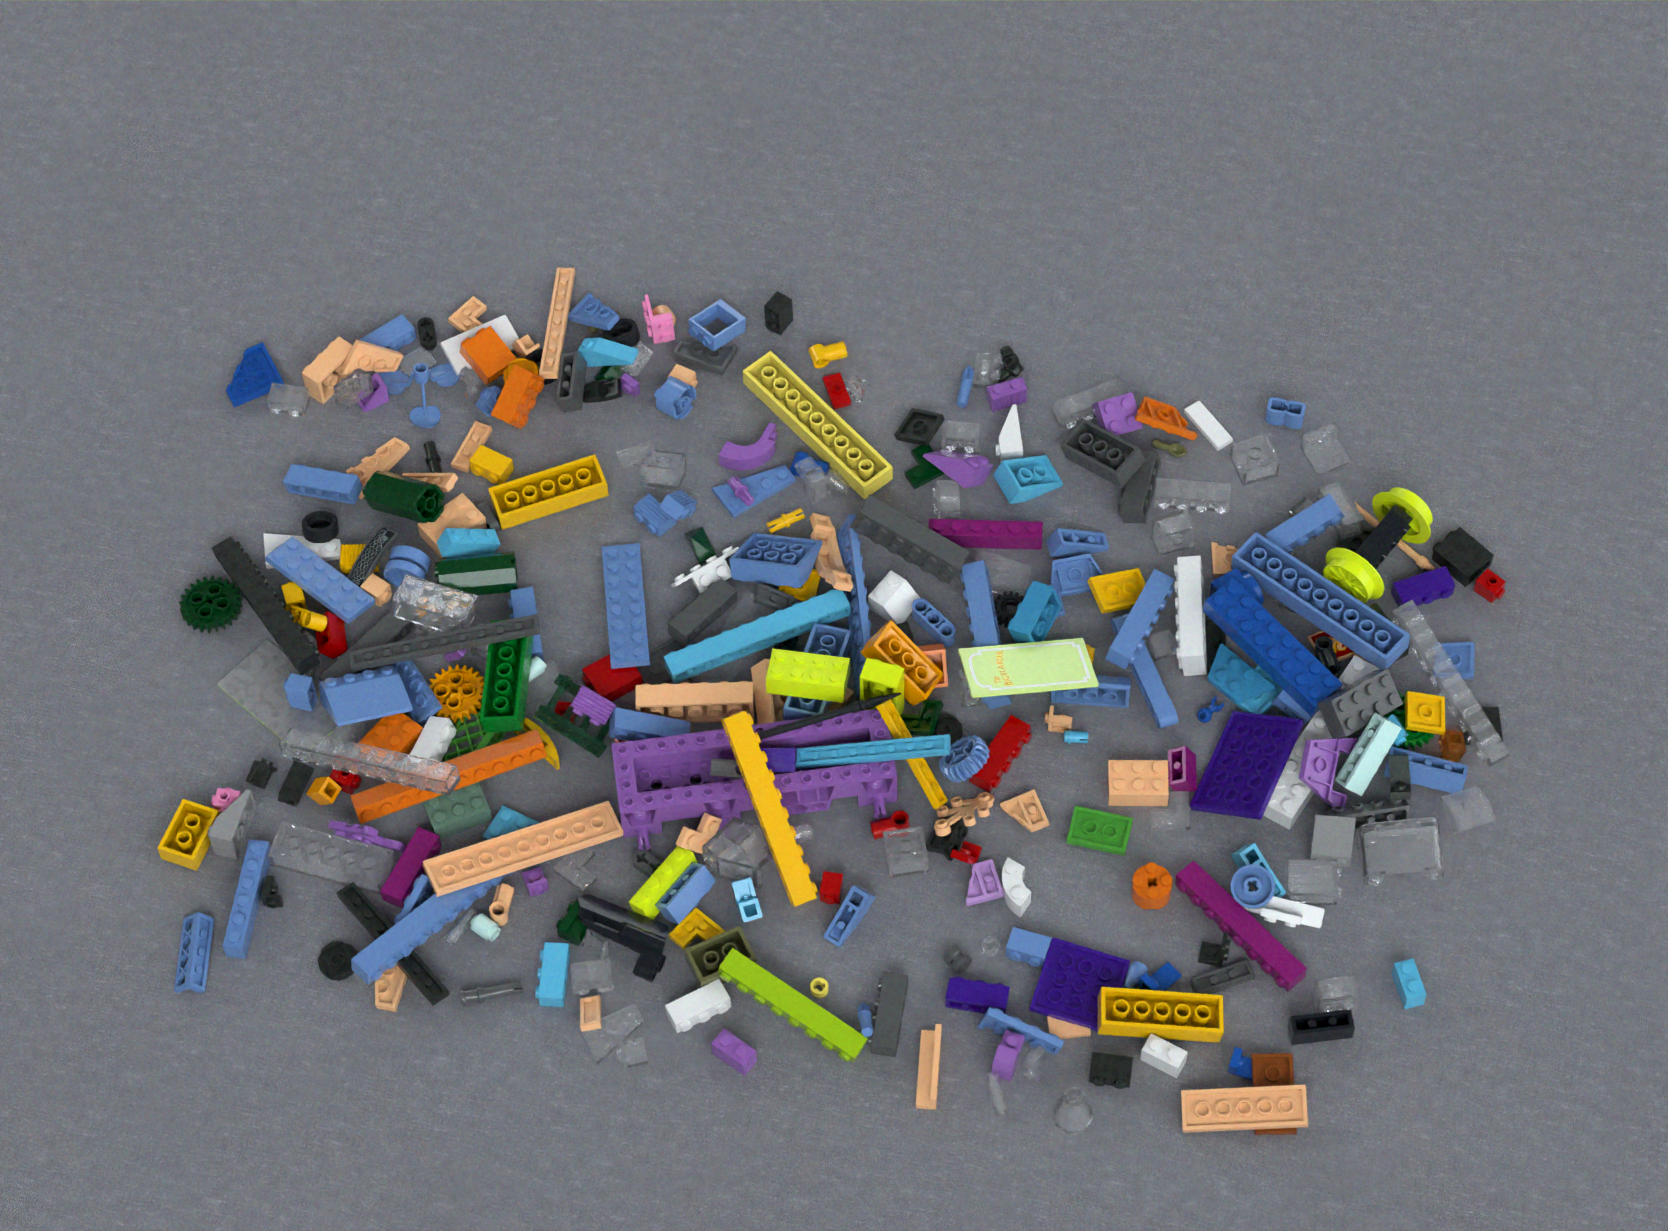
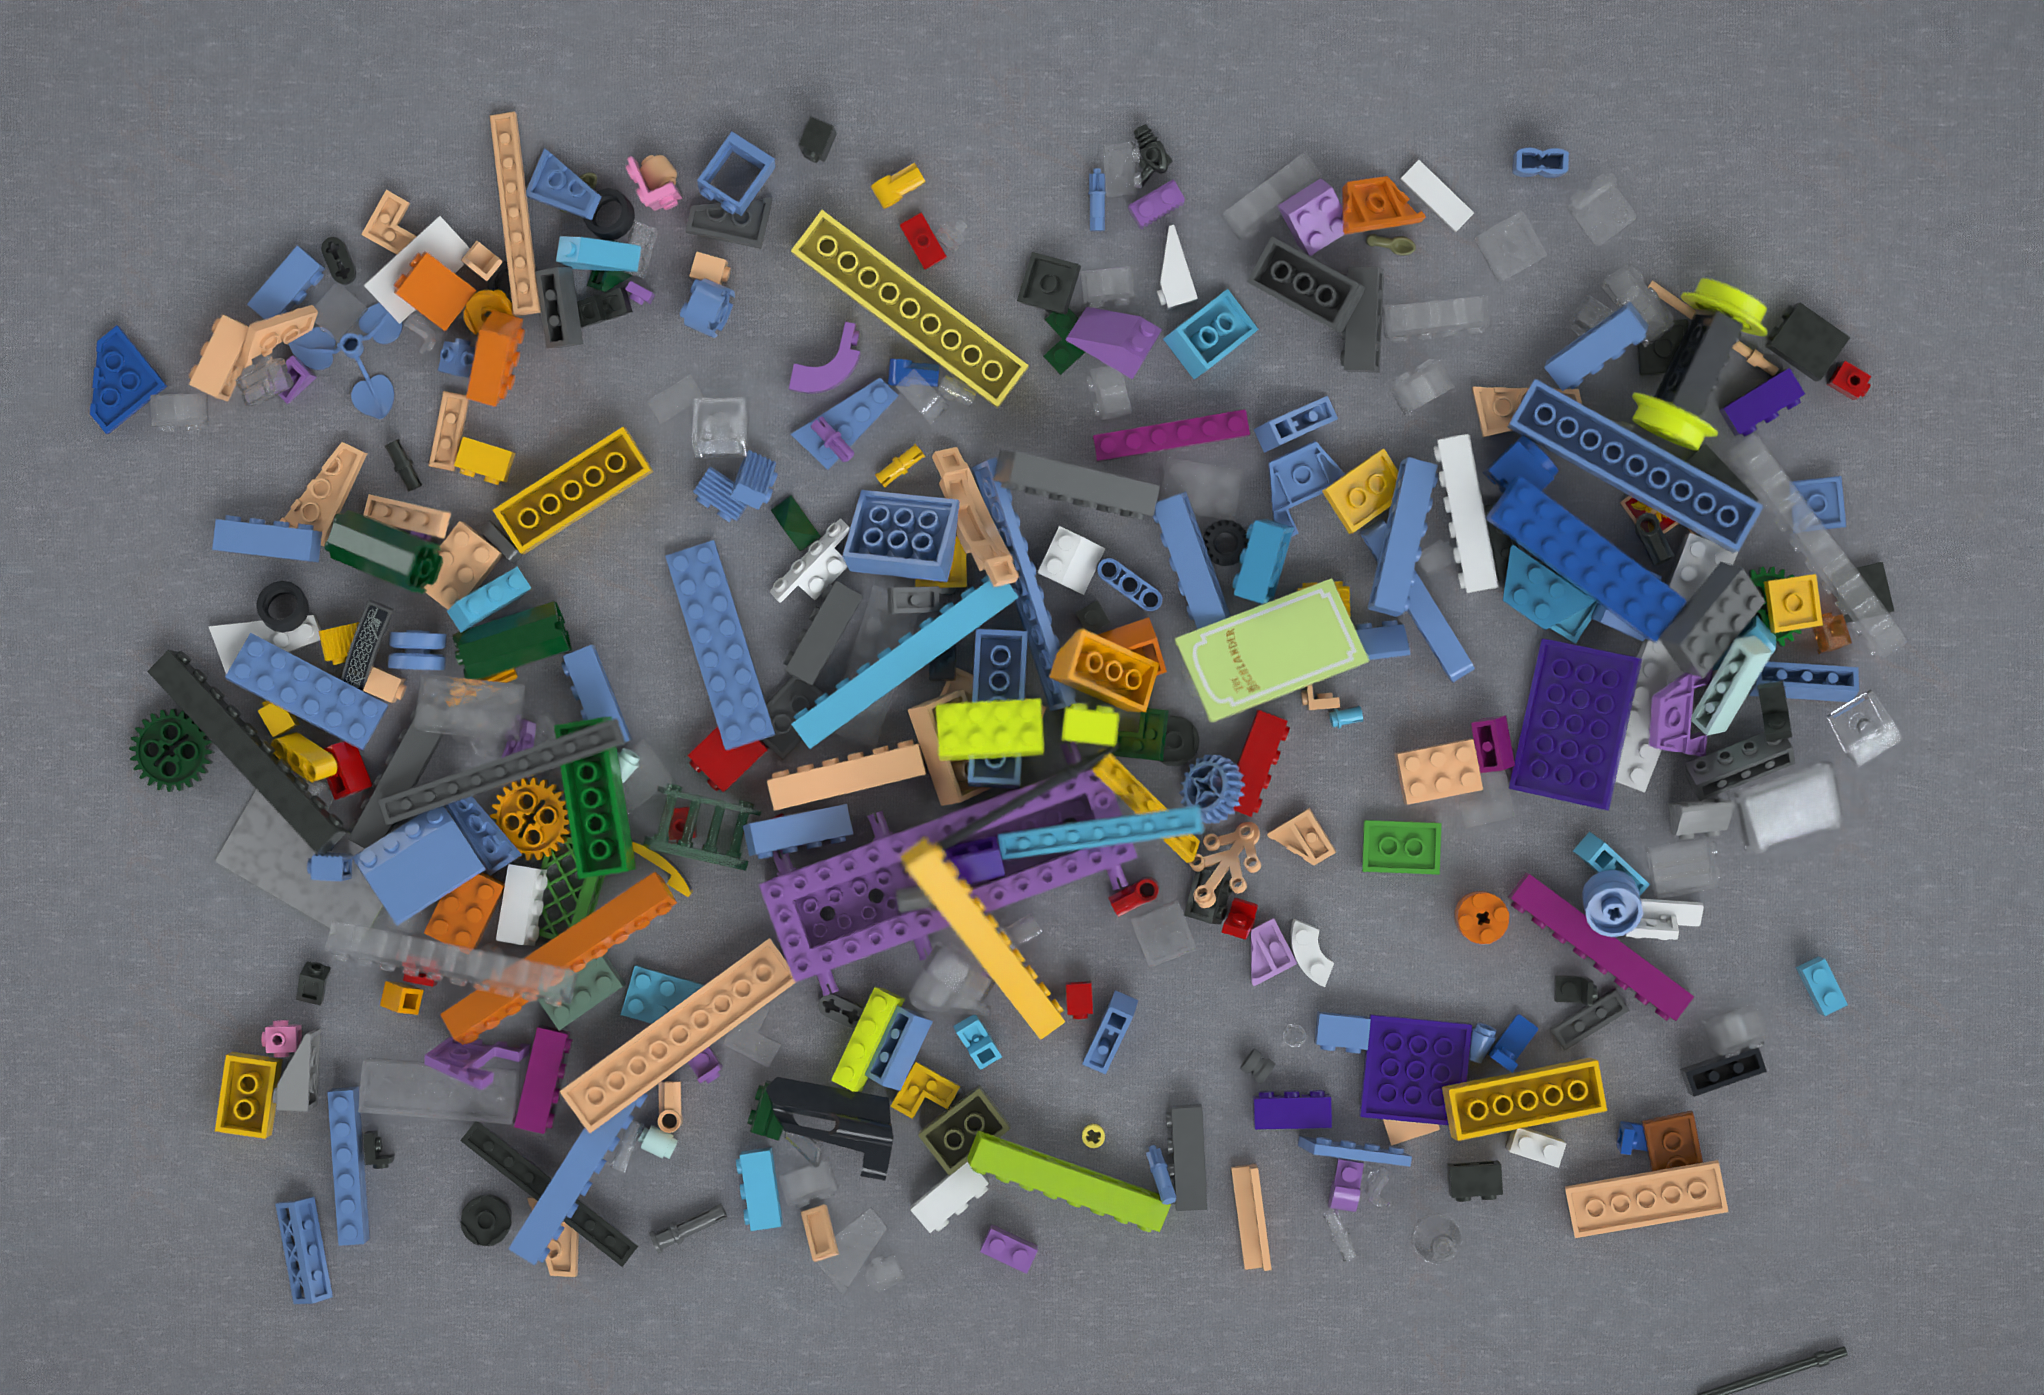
camera: 15 degrees left, 30 degrees up
(295, 783) = (362, 991): pearl dark grey hinge -> none
(418, 896) = (559, 1137): medium blue wing -> none
(592, 705) = (718, 820): medium lavender brick -> none
(695, 839) = (901, 972): light nougat plate -> none
(1205, 714) = (1508, 646): blue arm -> none

